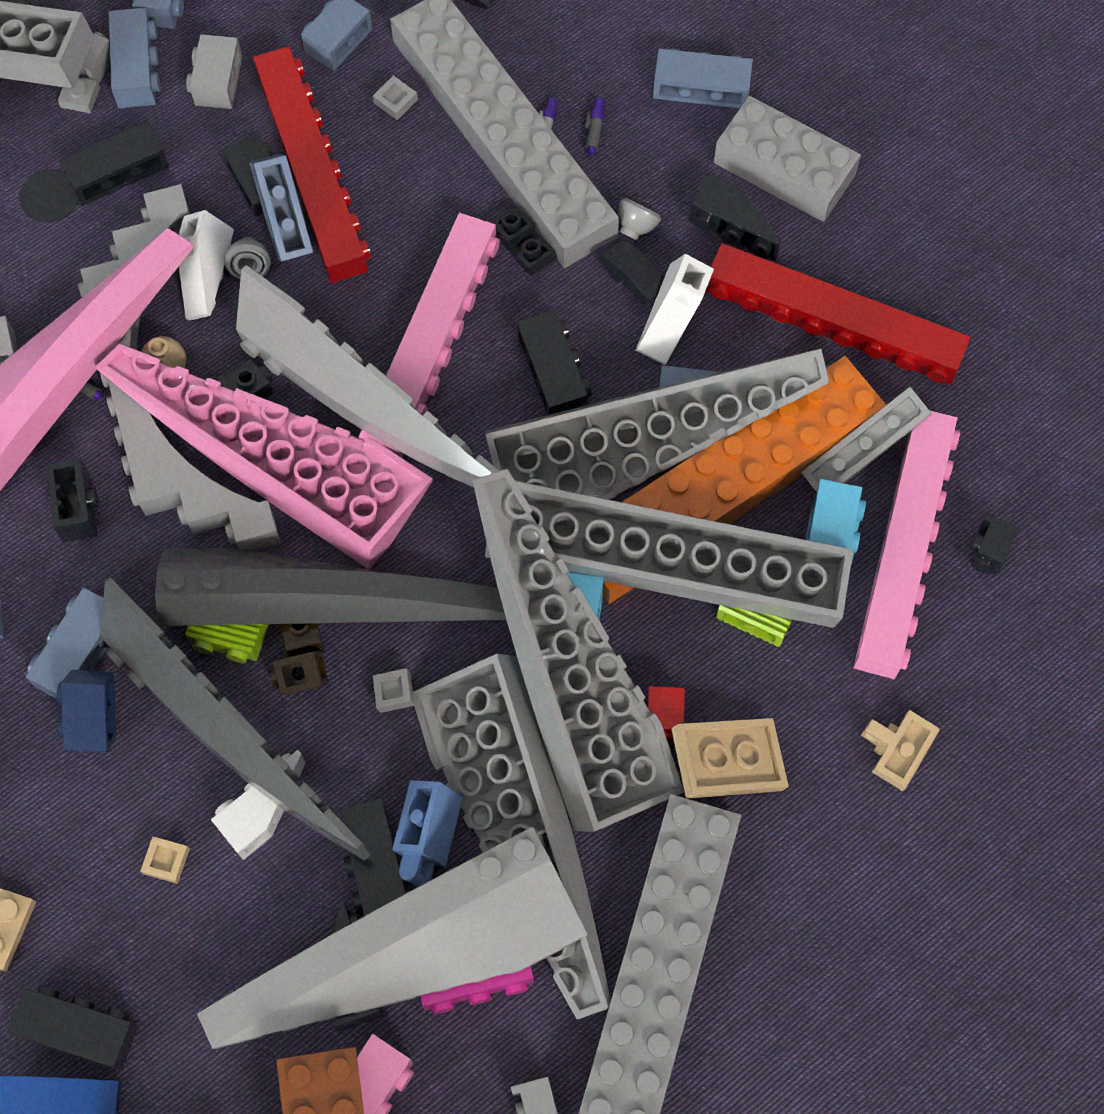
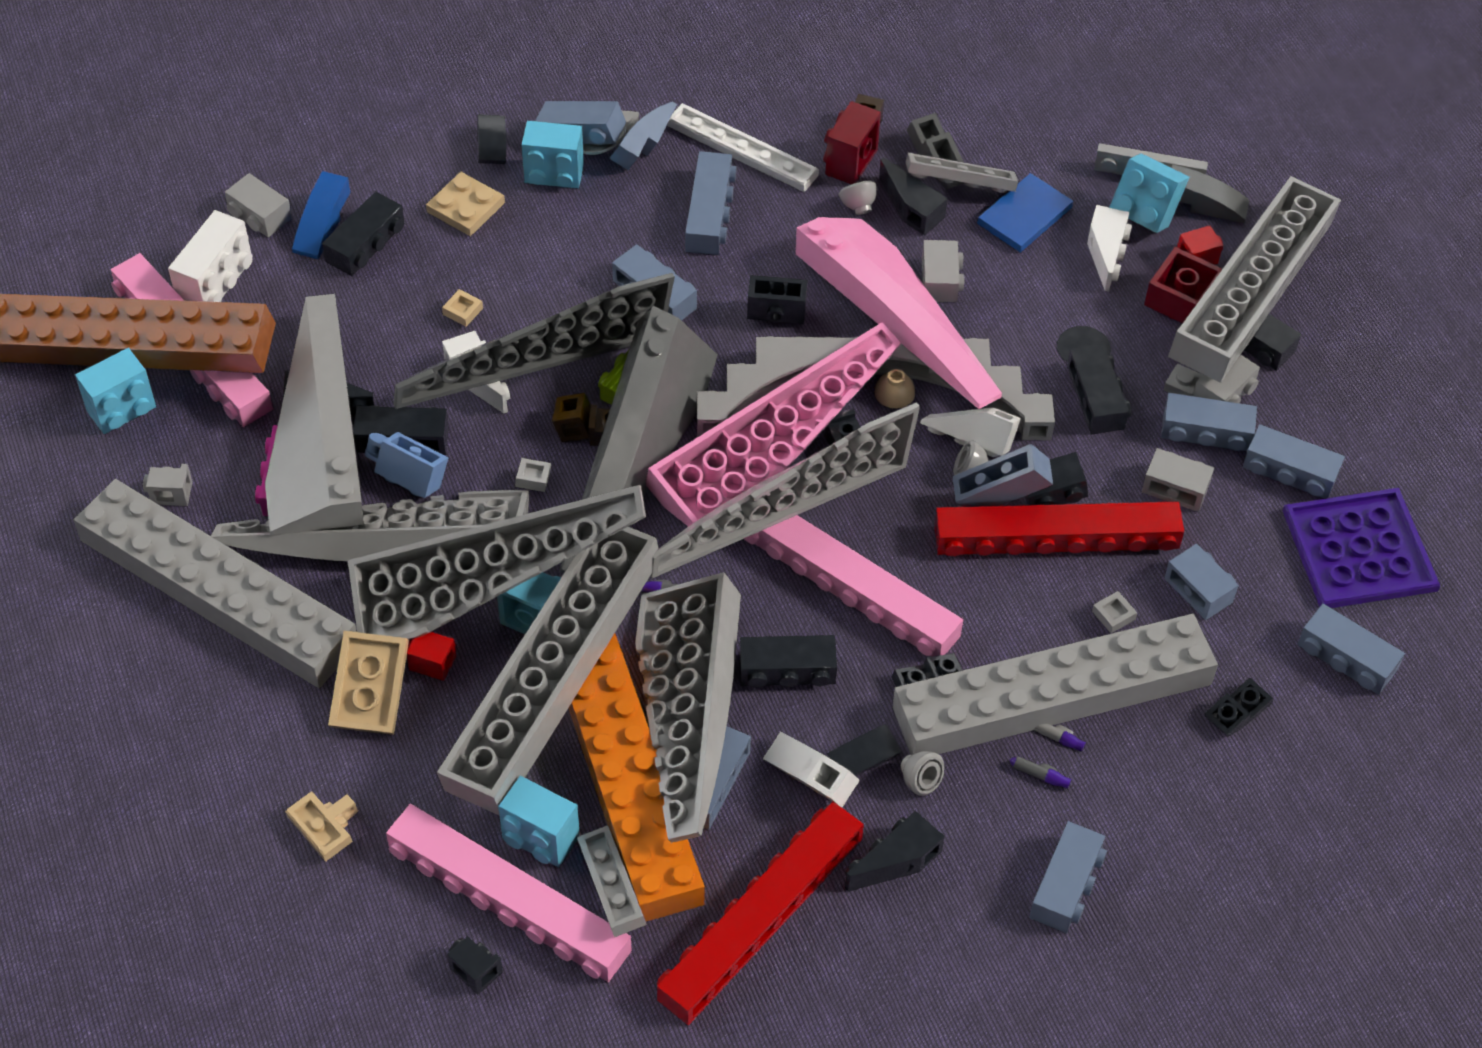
camera: 105 degrees right, 15 degrees down
(87, 711) = (593, 275): dark blue brick -> none
(786, 158) = (948, 921): light grey brick -> none

